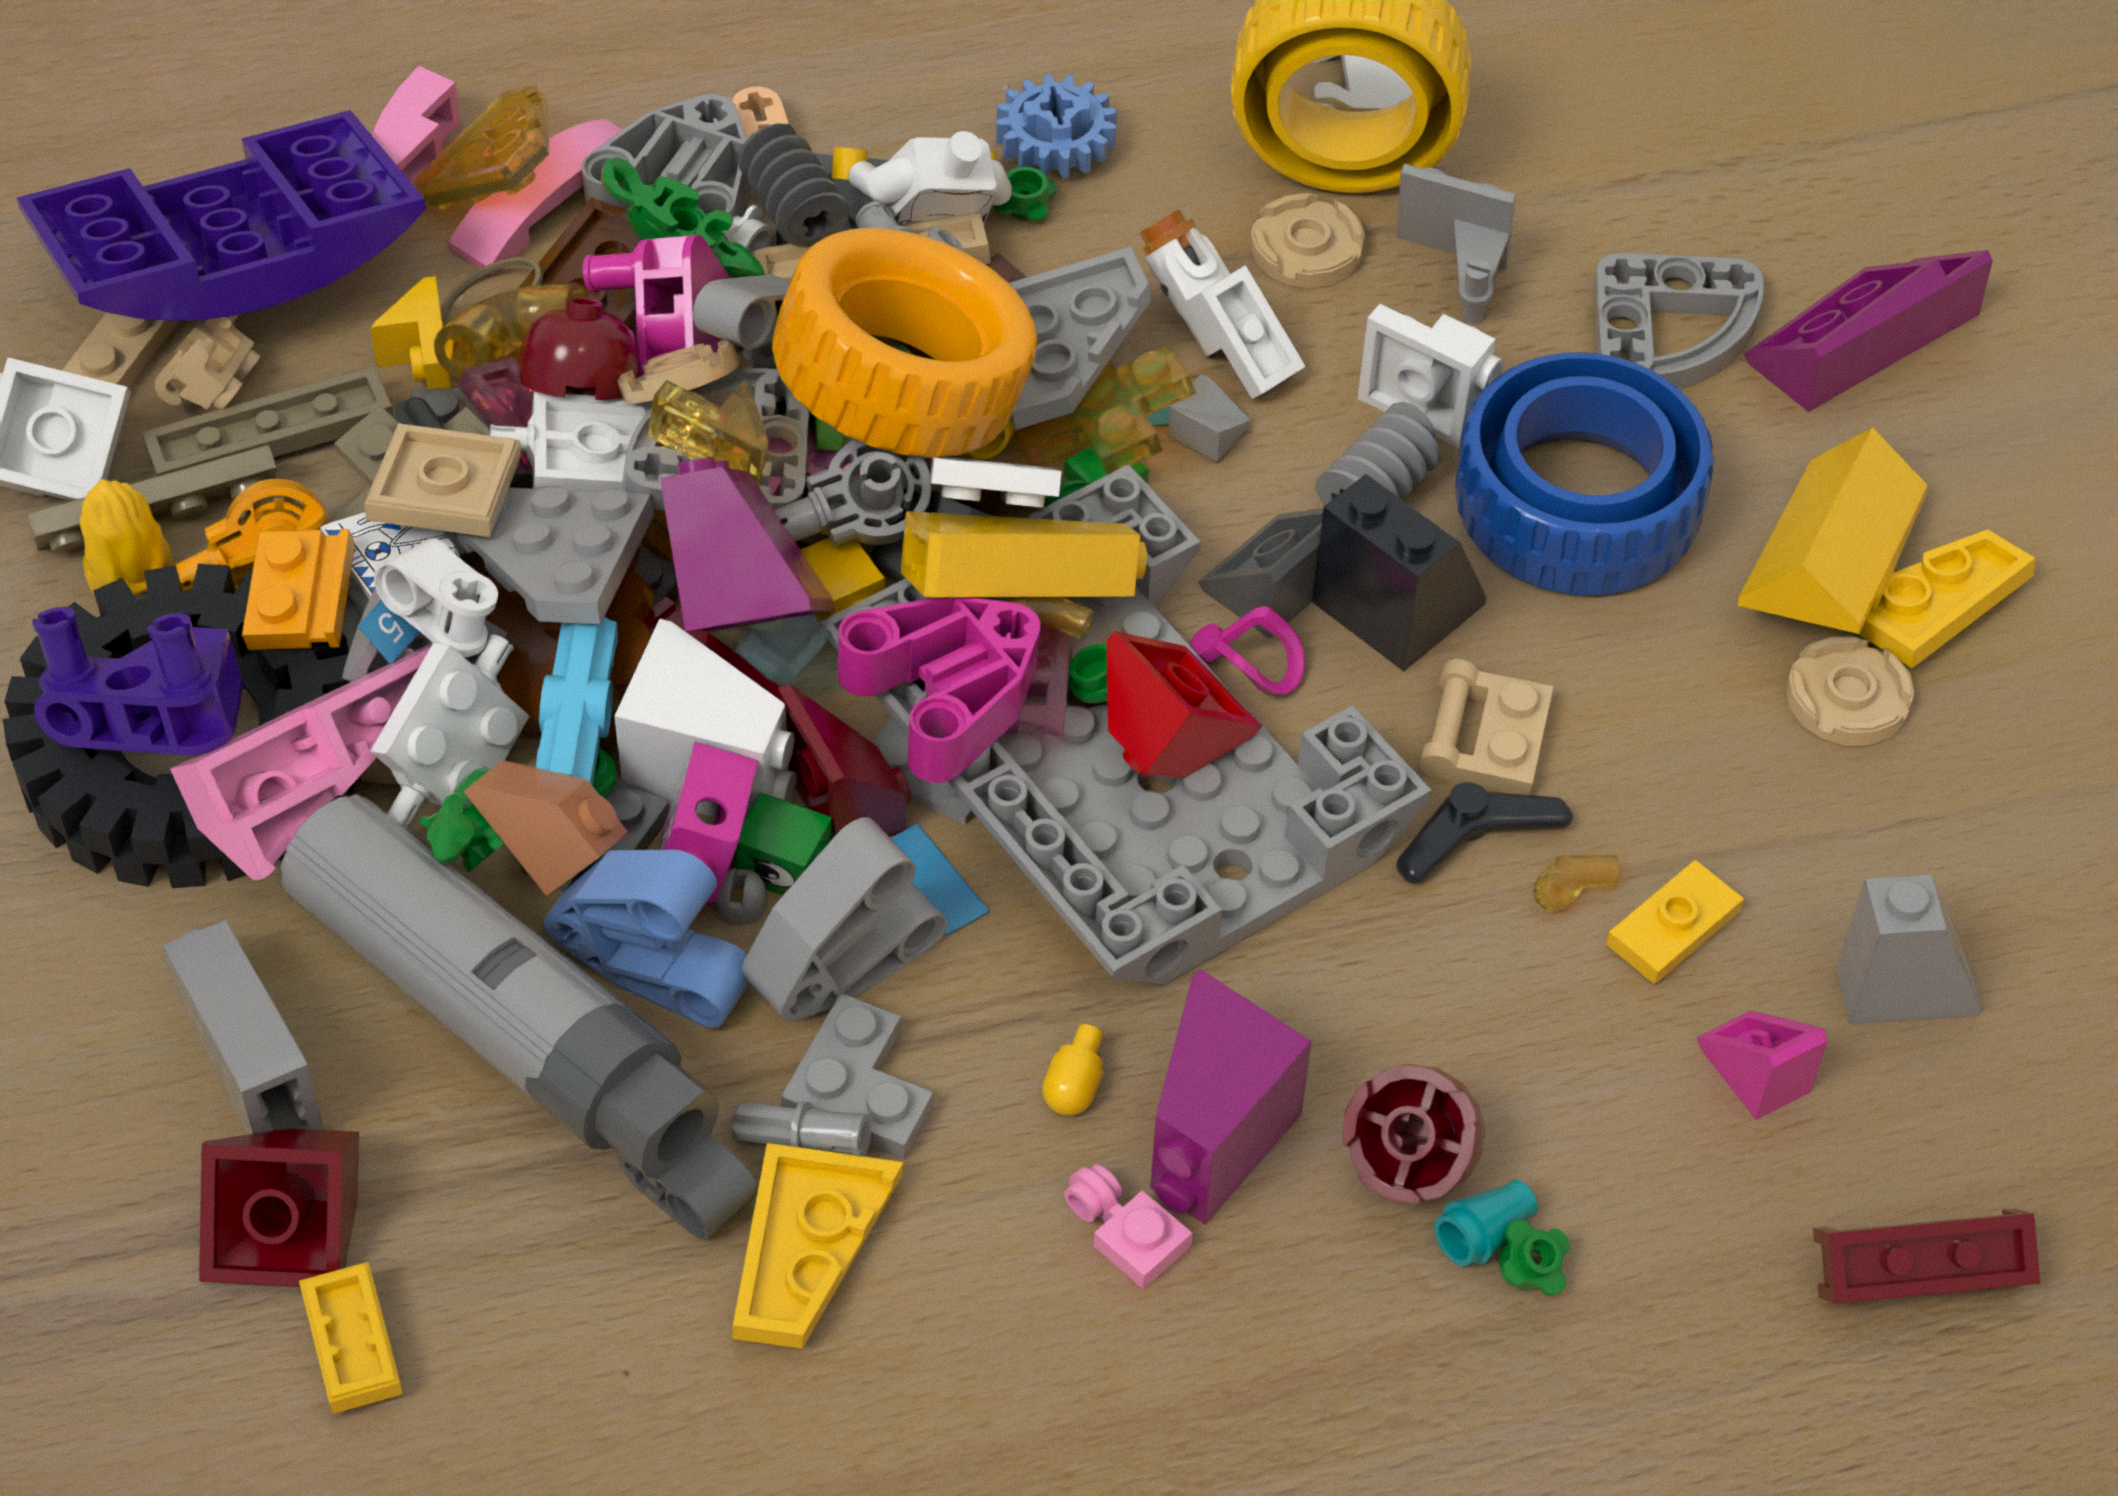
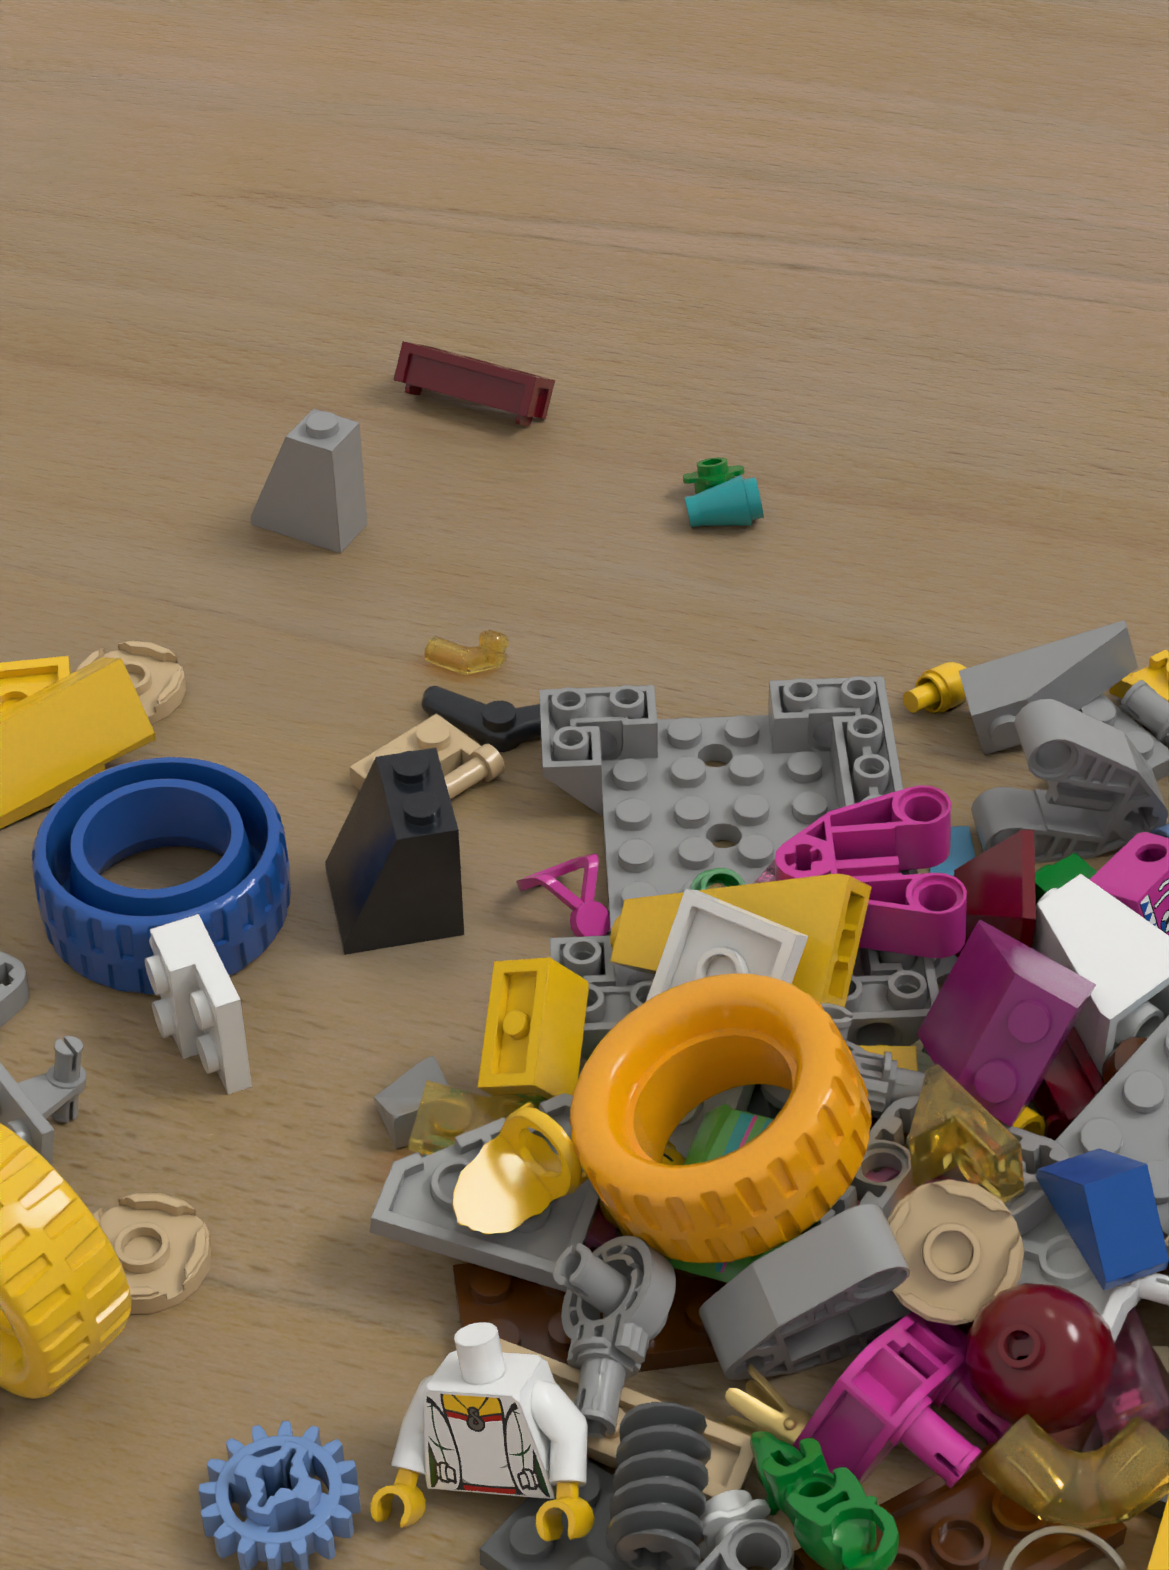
camera: 145 degrees left, 10 degrees down
(580, 429) = (1108, 1213): none -> blue slope
(971, 1064) = (1063, 670): none -> light grey slope
(1029, 194) = (367, 1430): green plate -> none
(1051, 293) = (516, 1174): none -> yellow piece
(1119, 416) = (533, 1028): none -> yellow panel
(1137, 1237) = (967, 597): bright pink plate -> none
(1169, 708) = (683, 819): red slope -> none
(1220, 306) = (319, 1174): white plate -> none
(1225, 1097) = (863, 591): magenta slope -> none
(1270, 568) = (466, 925): dark grey slope -> none
(1390, 1126) = (737, 536): dark red cylinder -> none
(1392, 452) = (317, 968): light grey piece -> none
(1674, 921) = (423, 607): yellow plate -> none
(1765, 1058) = (456, 497): dark pink slope -> none

